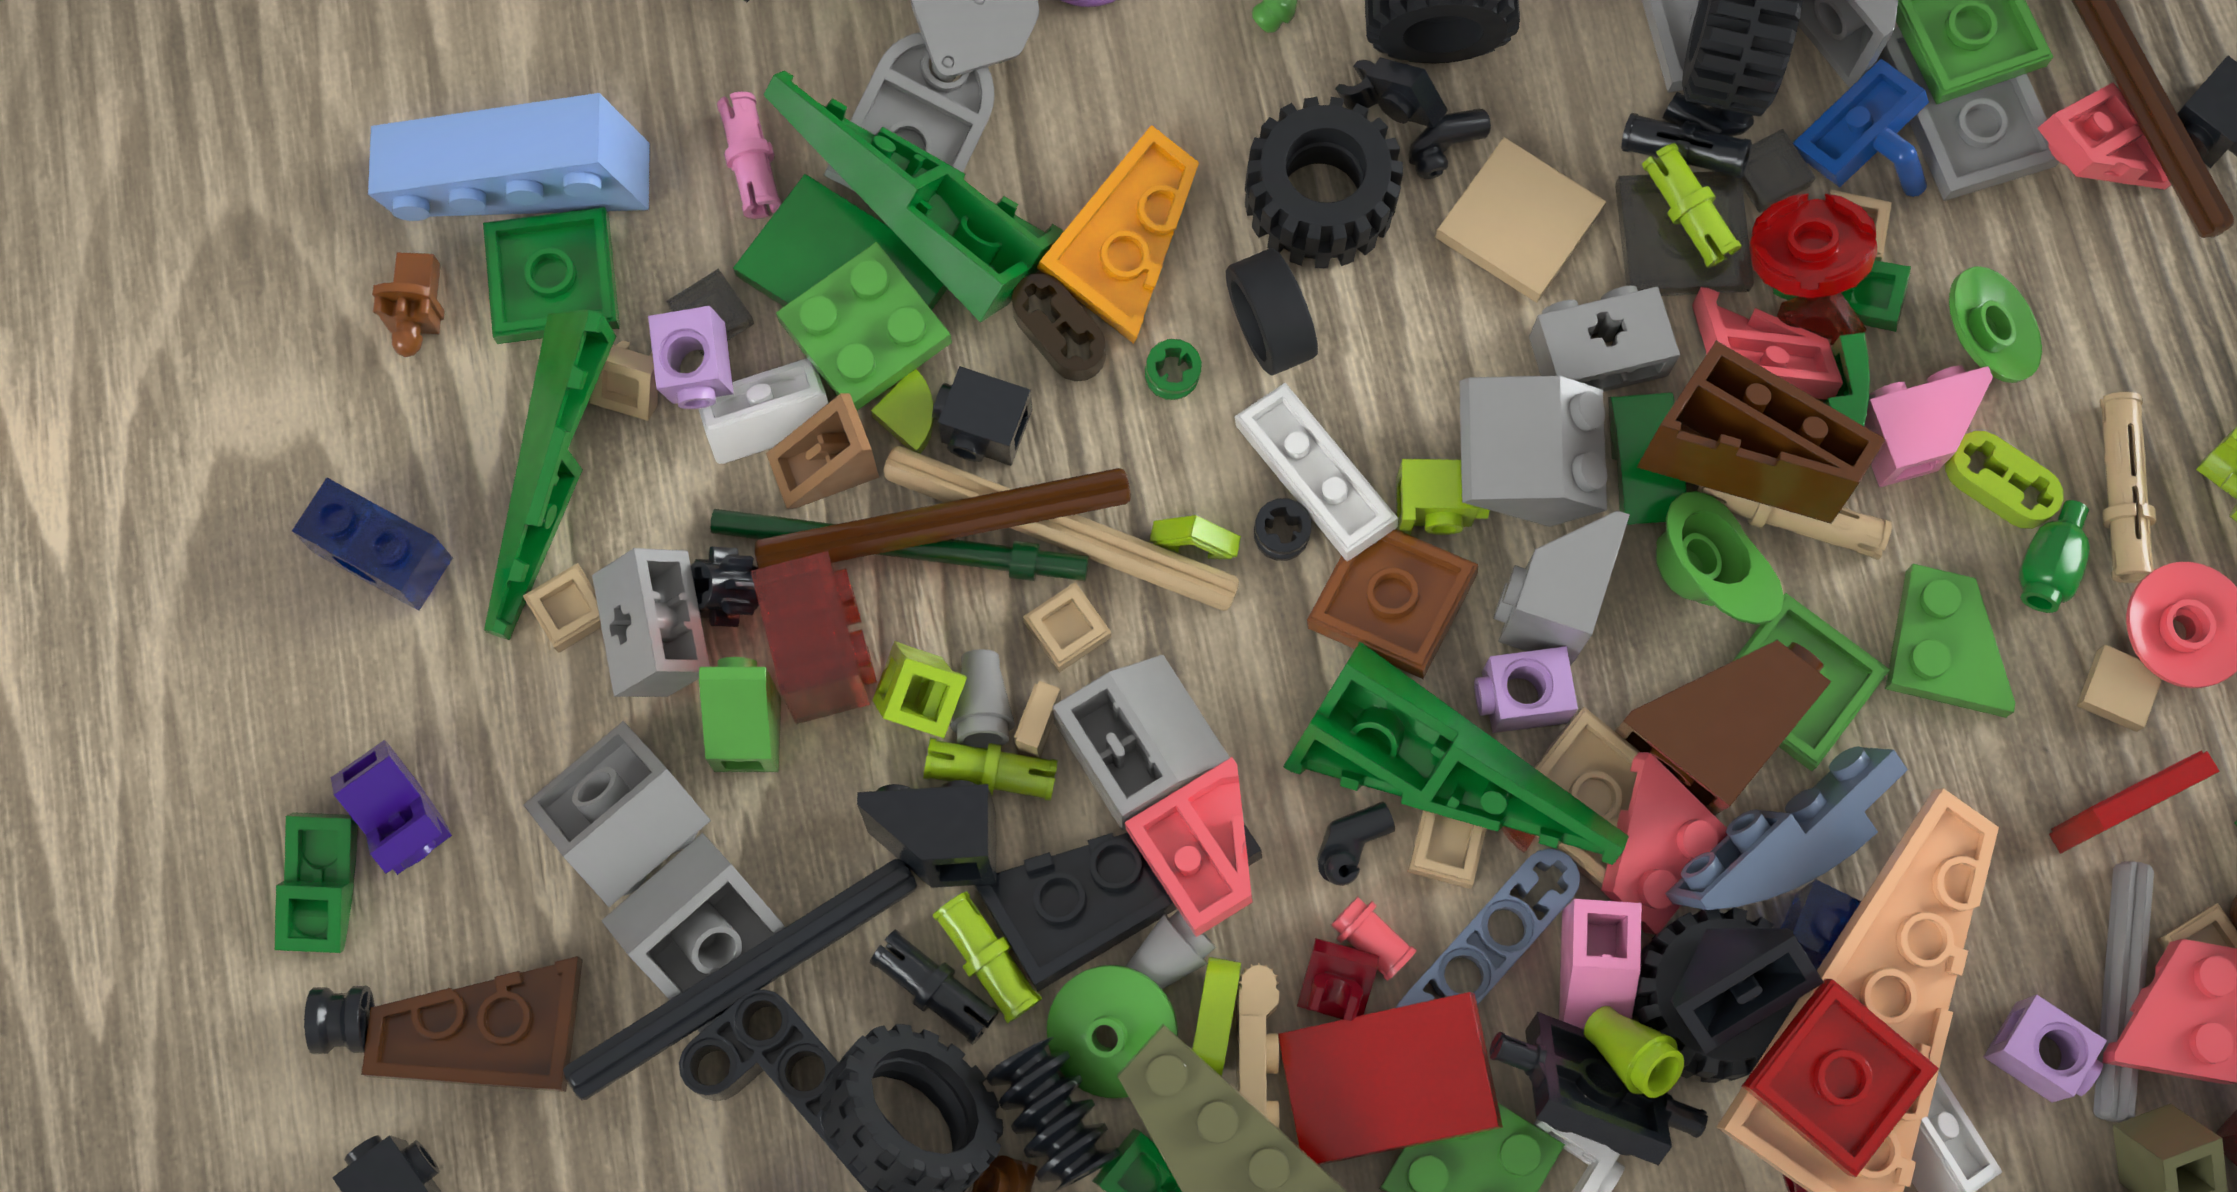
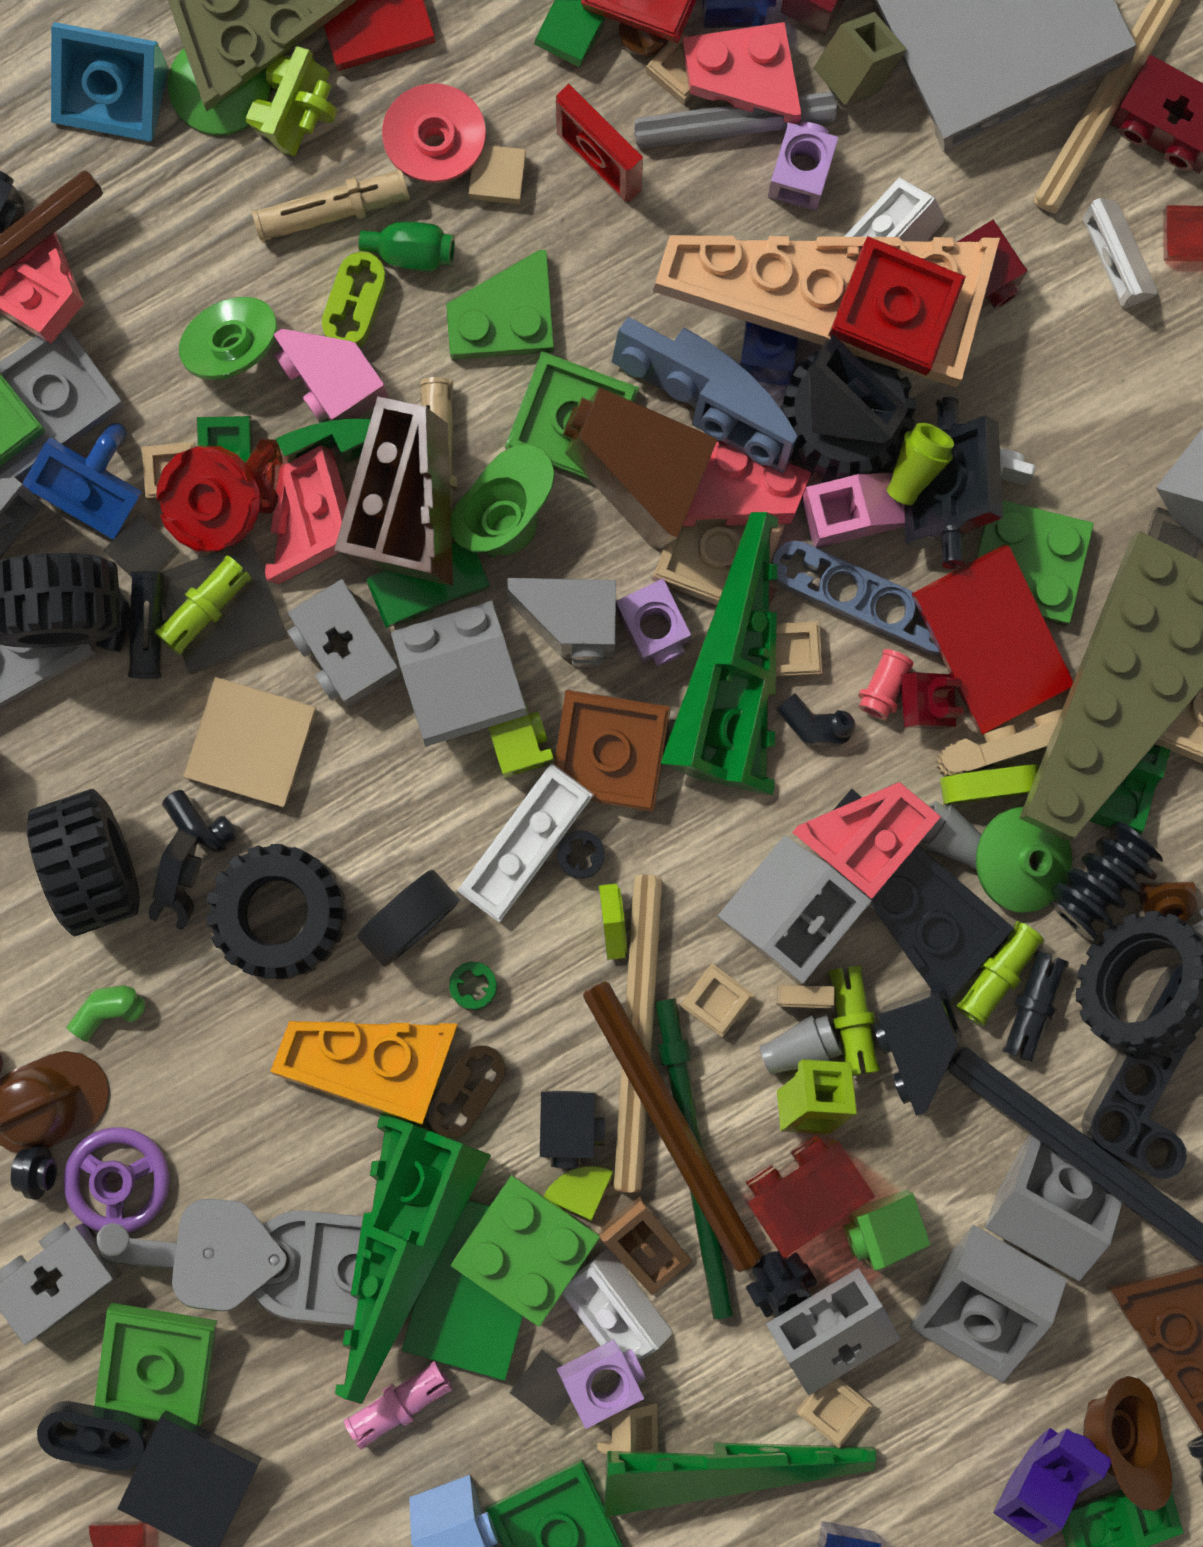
camera: 110 degrees left, 10 degrees up
(395, 916) = (1129, 1432): none -> reddish brown piece

